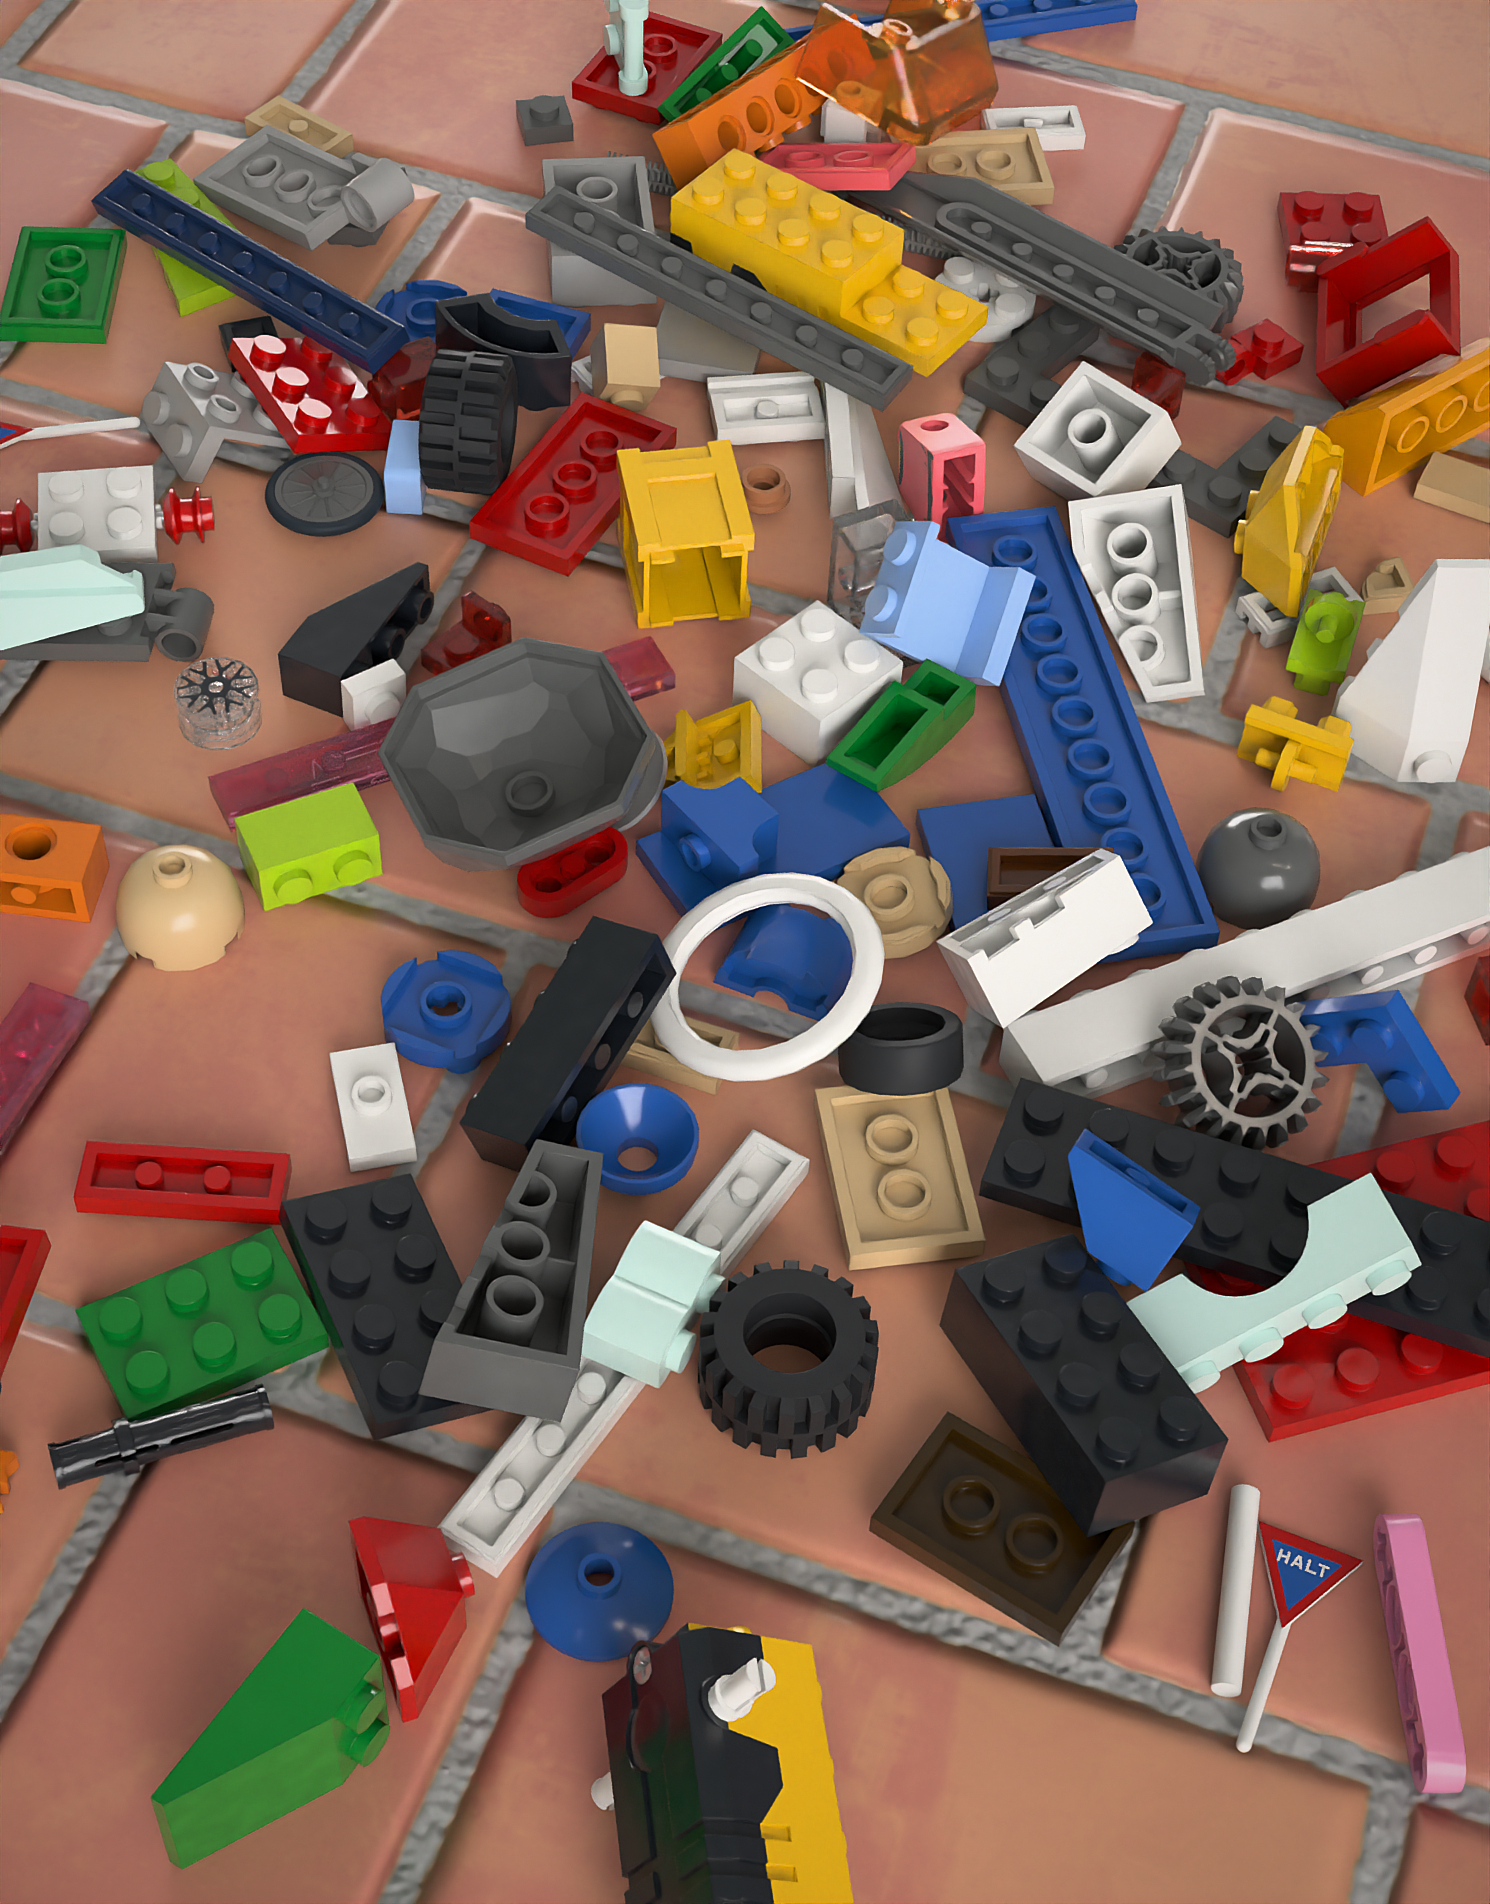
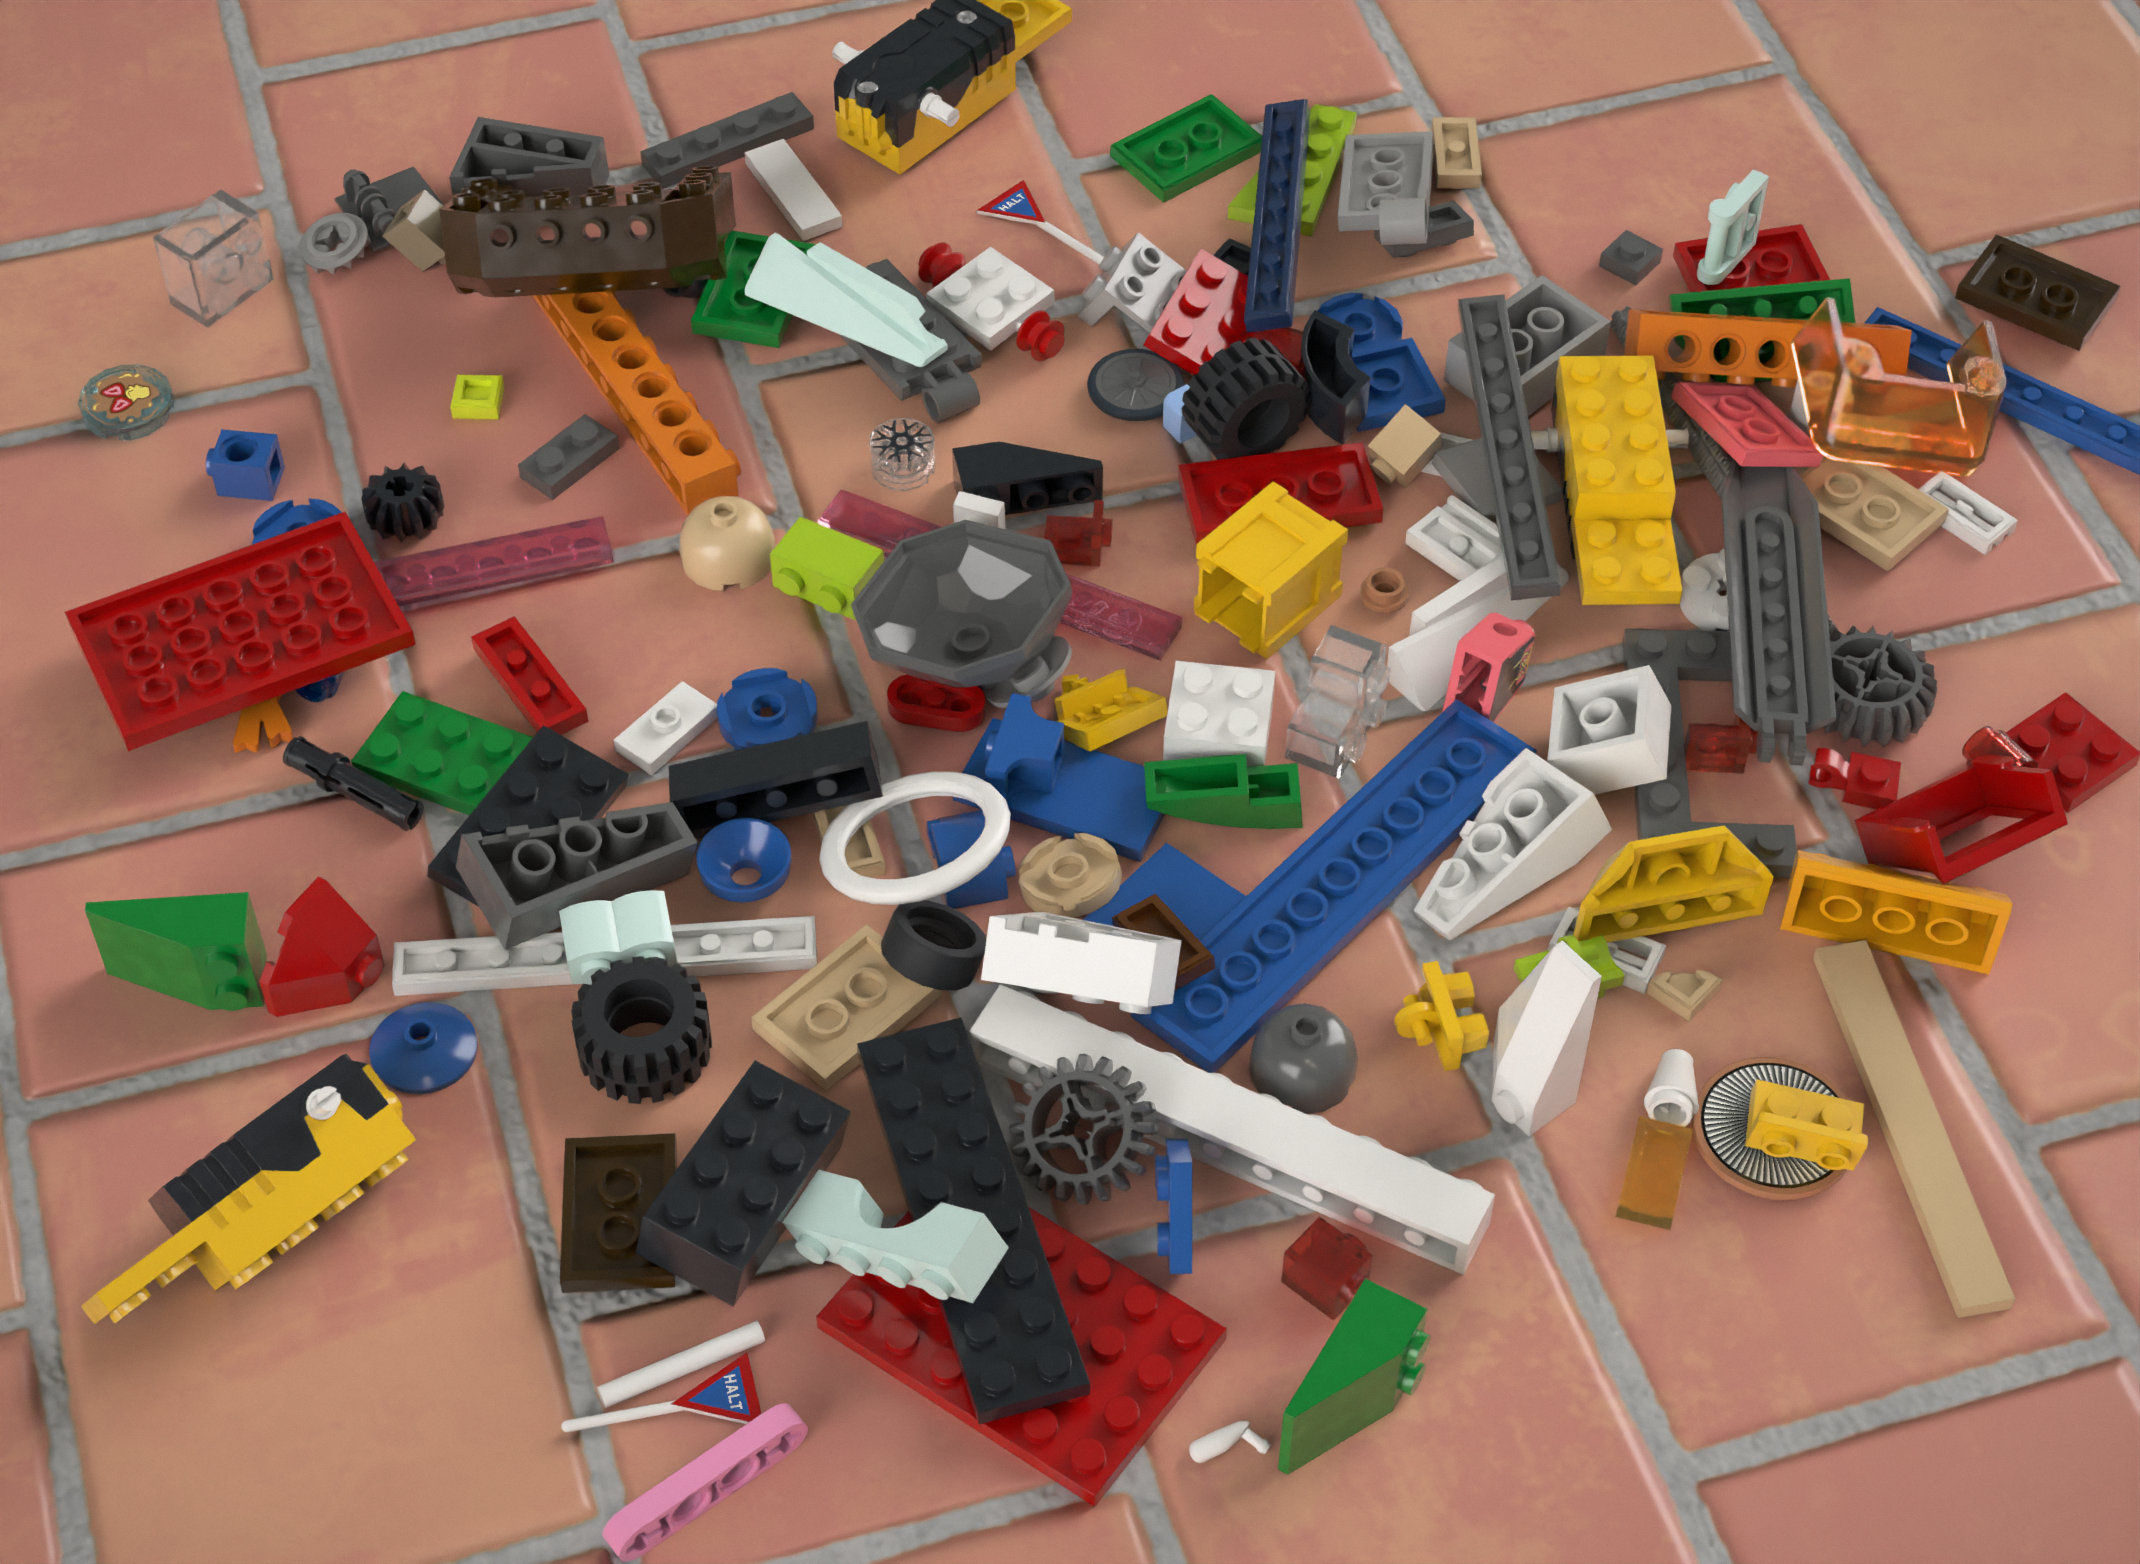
camera: 55 degrees right, 0 degrees up
(945, 604) = (1333, 732): light blue panel -> none
(1126, 1213) = (878, 1119): blue slope -> none

